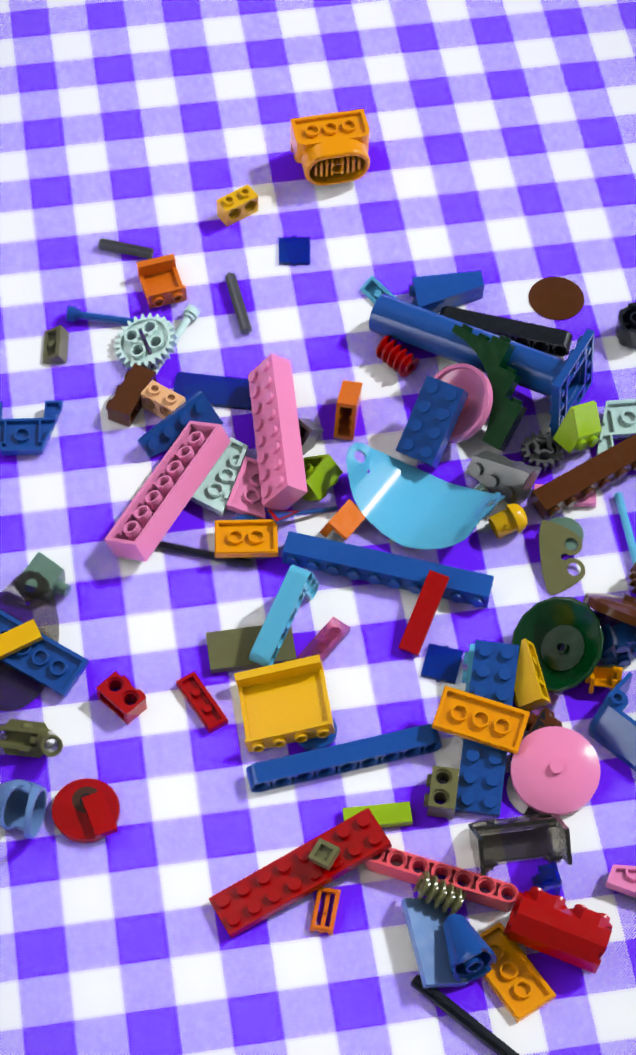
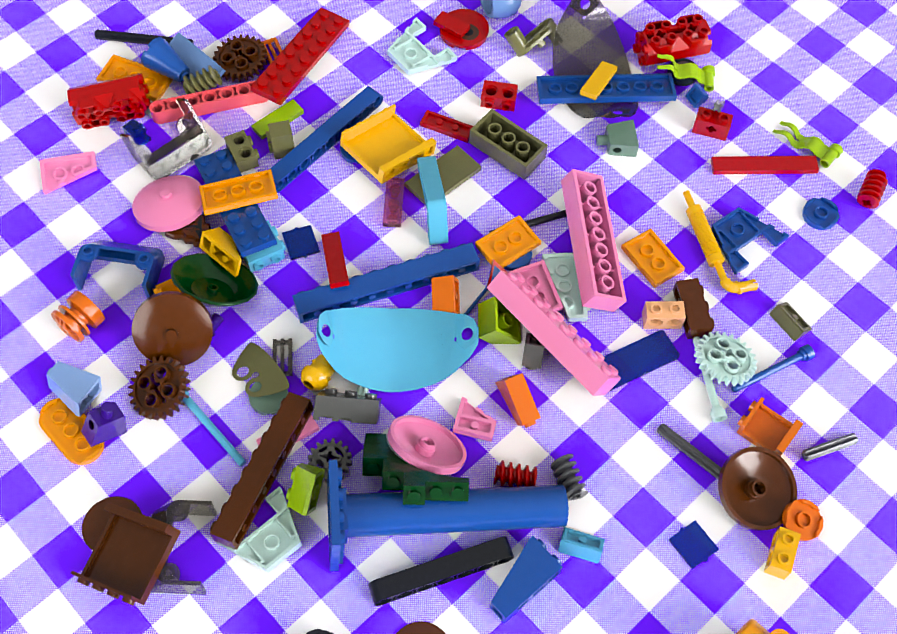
camera: 145 degrees right, 5 degrees up
(61, 437) = (711, 248): none -> yellow piece
(120, 460) = (652, 258): none -> light orange tile
(162, 632) = (508, 144): none -> olive brick
(167, 431) = (631, 312): blue wing -> none
(172, 810) = (413, 55): none -> light aqua wing
(199, 217) = (804, 518): none -> orange tile
(215, 246) = (756, 488): none -> reddish brown dish
(324, 854) = (288, 55): olive plate -> none
(352, 925) = (241, 57): none -> reddish brown gear
(354, 333) = (567, 477): none -> dark grey piece
(395, 414) = (473, 422): none -> bright pink wing
(395, 768) = (280, 138): none -> olive brick
(432, 421) = (434, 410): blue brick -> none
(530, 546) = (282, 342): none -> clear smoke tile

